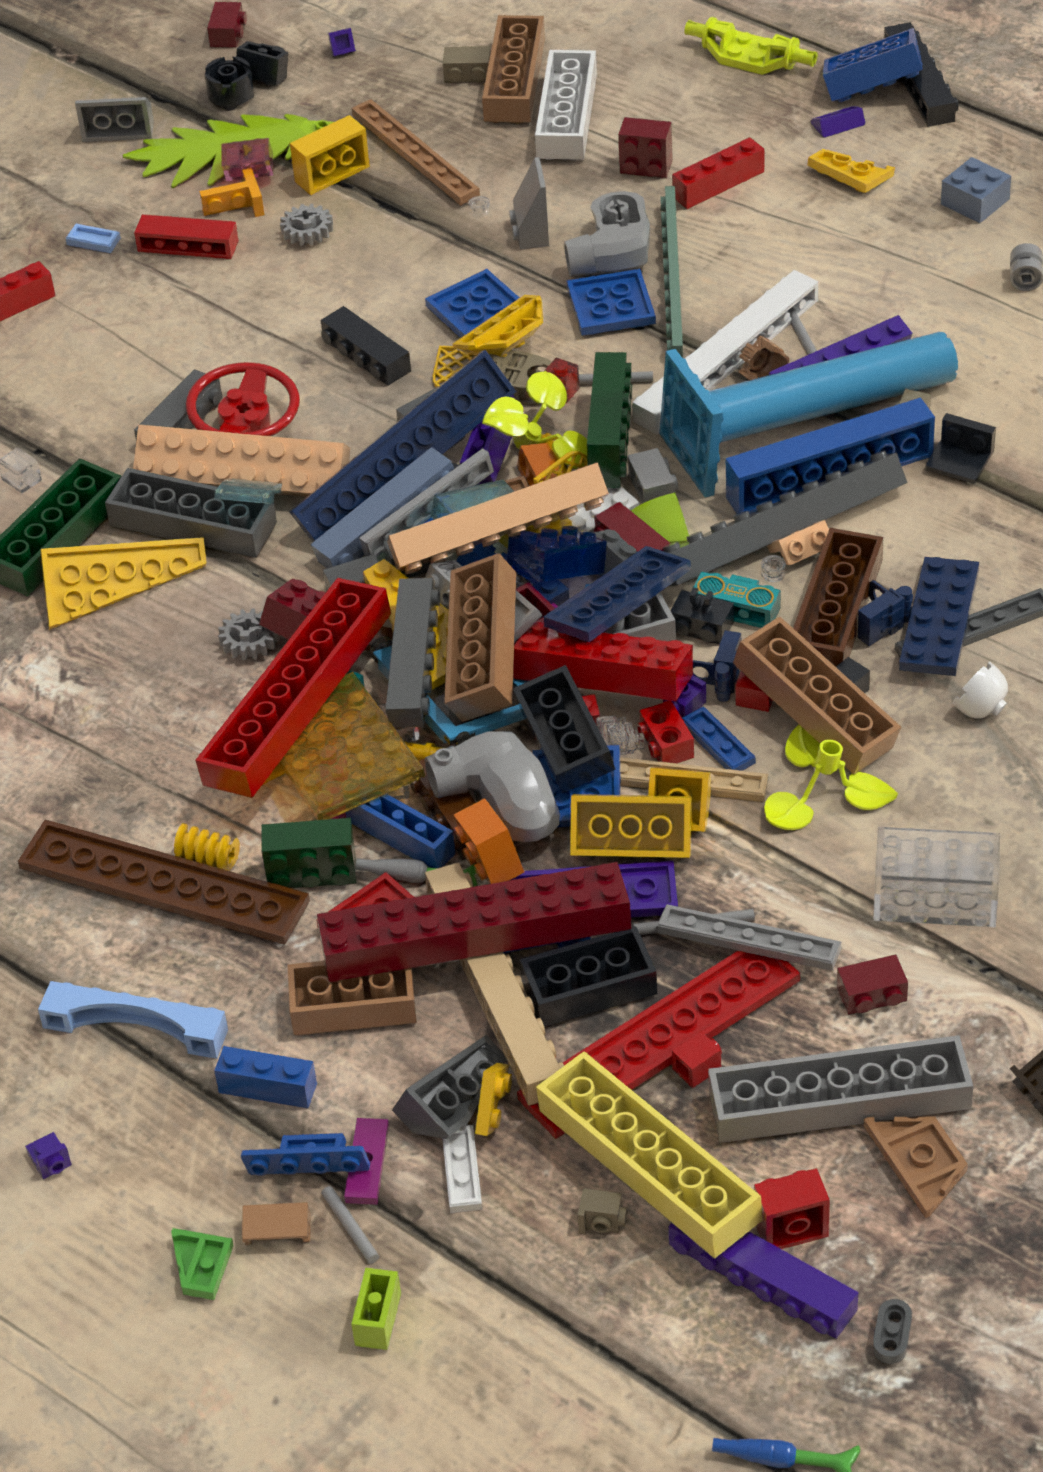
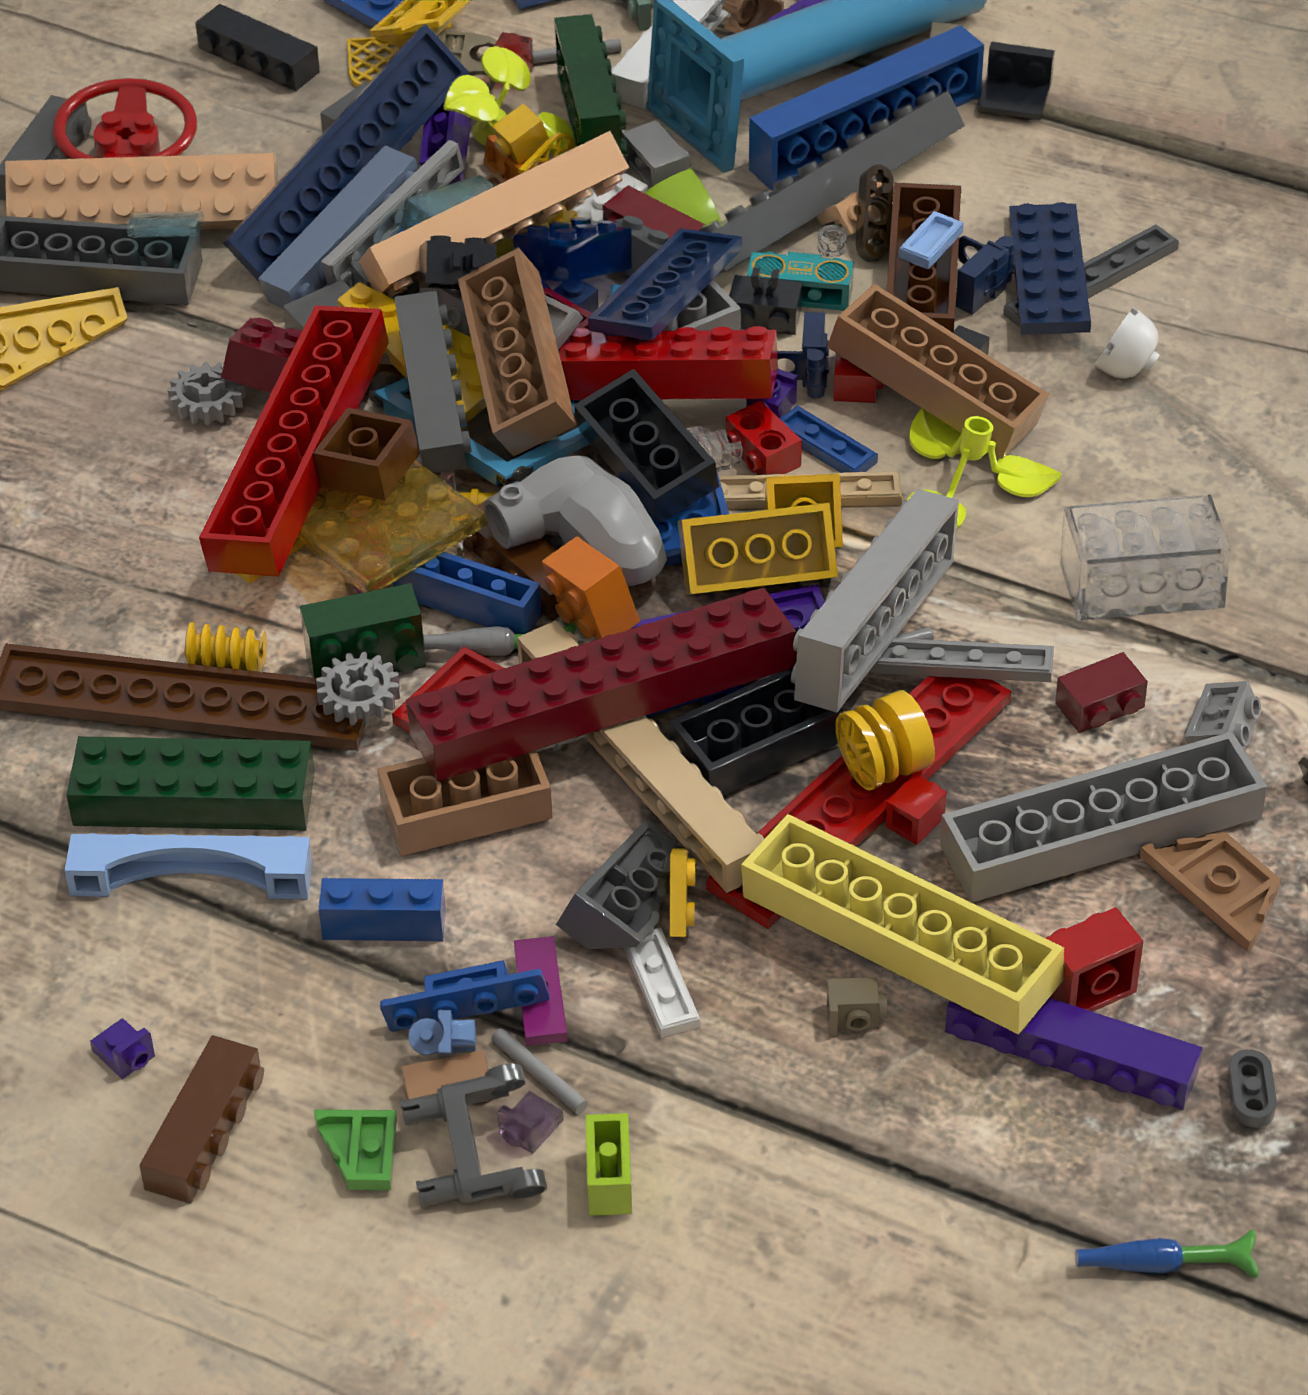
camera: 15 degrees left, 0 degrees up
(89, 1221) = (201, 1119): none -> reddish brown brick
(152, 953) = (191, 783): none -> dark green brick
(272, 1243) = (452, 1105): none -> dark grey connector
(280, 1186) = (444, 1037): none -> medium blue hips
(293, 896) = (358, 688): none -> light grey gear
(330, 1264) = (529, 1122): none -> clear purple bracket
(342, 707) = (366, 453): none -> reddish brown brick
(447, 555) = (447, 261): none -> black brick
(541, 449) = (520, 134): none -> yellow brick
(674, 1002) = (885, 740): none -> yellow wheel
(706, 883) = (874, 600): none -> light grey brick
(799, 556) = (883, 201): none -> dark brown beam
(843, 582) = (931, 240): none -> light blue tile
(969, 1016) = (1225, 709): none -> light grey bracket

